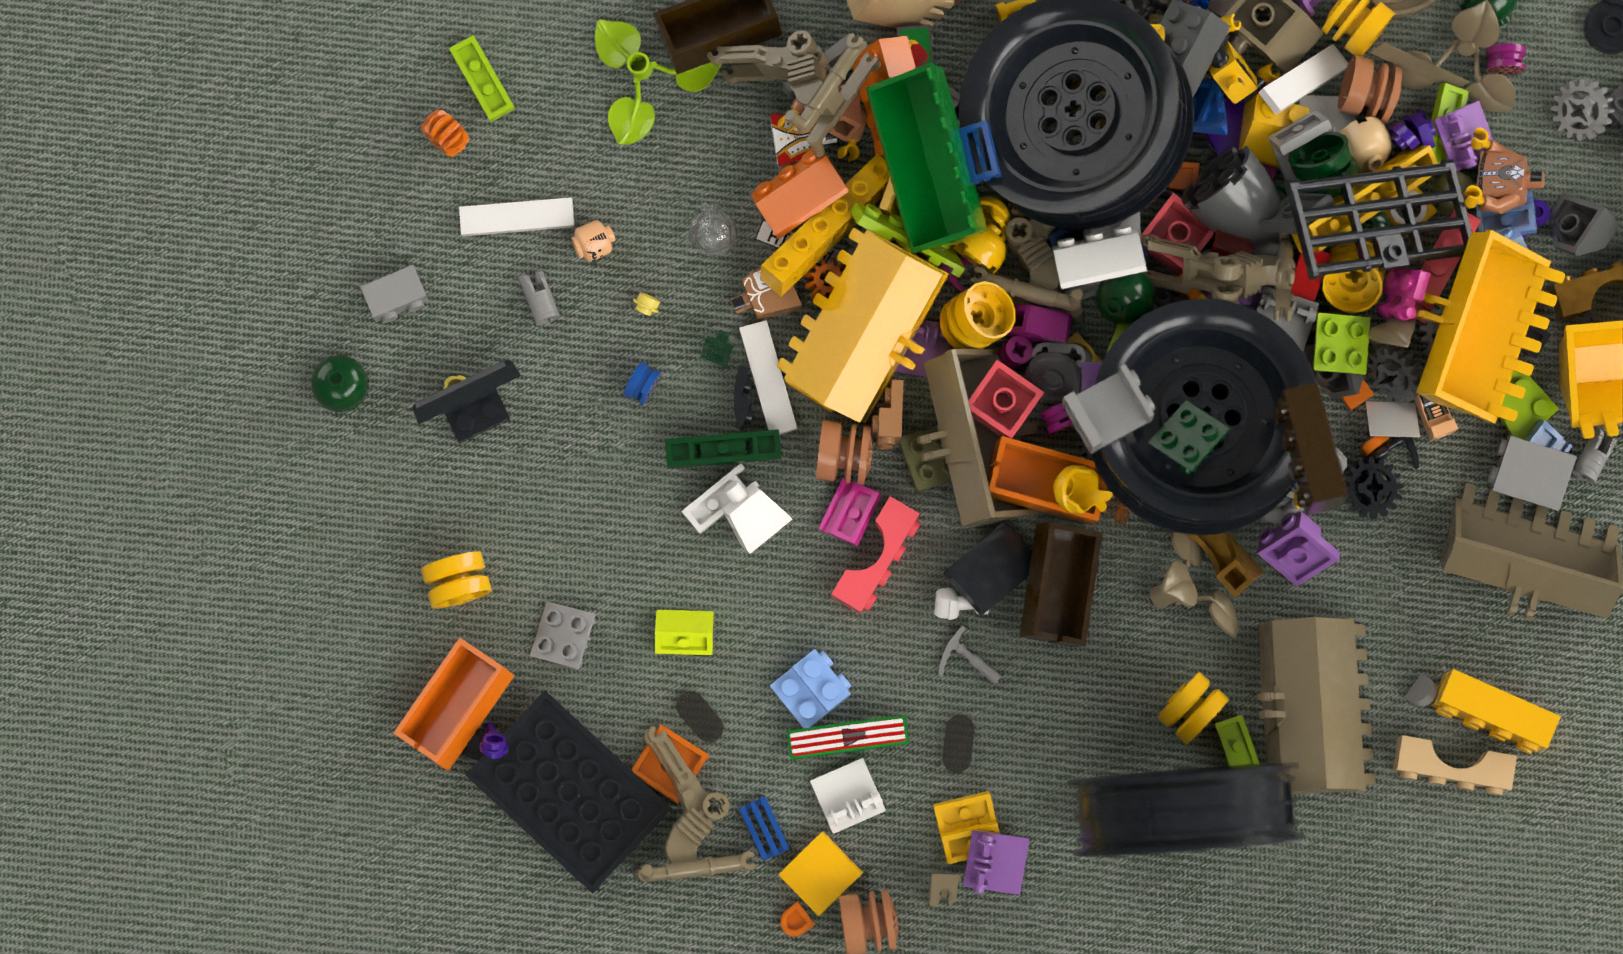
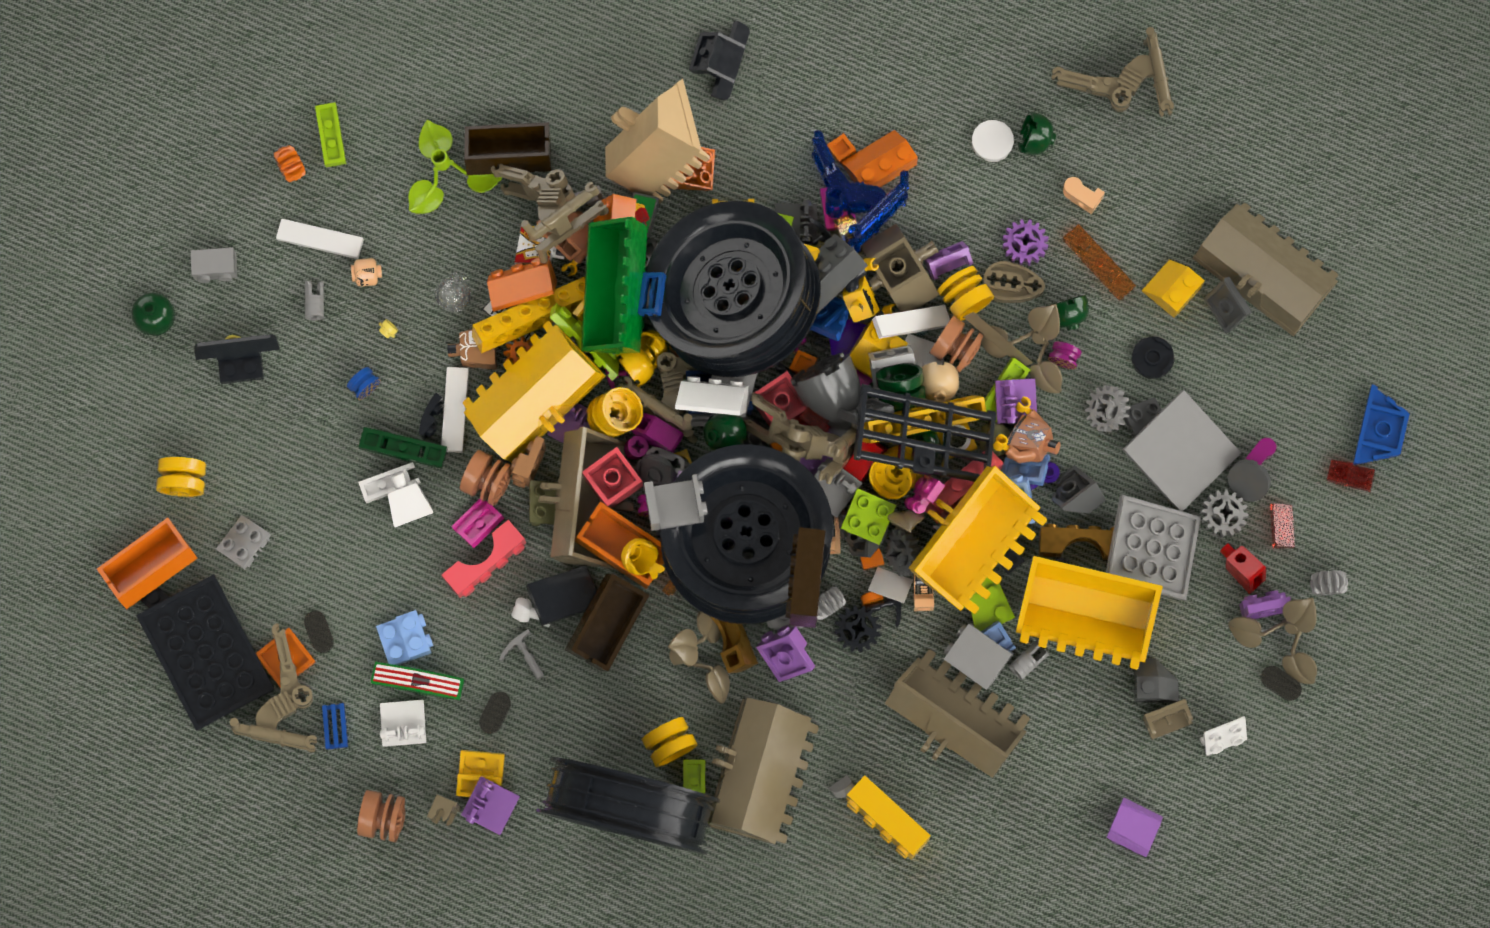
camera: 25 degrees right, 5 degrees down
(493, 743) = (163, 599): dark purple plate -> none
(684, 632) = (329, 568): neon yellow panel -> none
(717, 349) = (426, 376): clear green tile -> none
(795, 921) = (333, 799): orange tile -> none
(820, 873) = (363, 771): yellow slope -> none
(1189, 436) = (725, 541): dark green hinge -> none
(1402, 136) = (968, 385): dark purple plate -> none
(1417, 758) = (871, 861): tan arch -> none
(1421, 127) = (985, 382): dark purple plate -> none

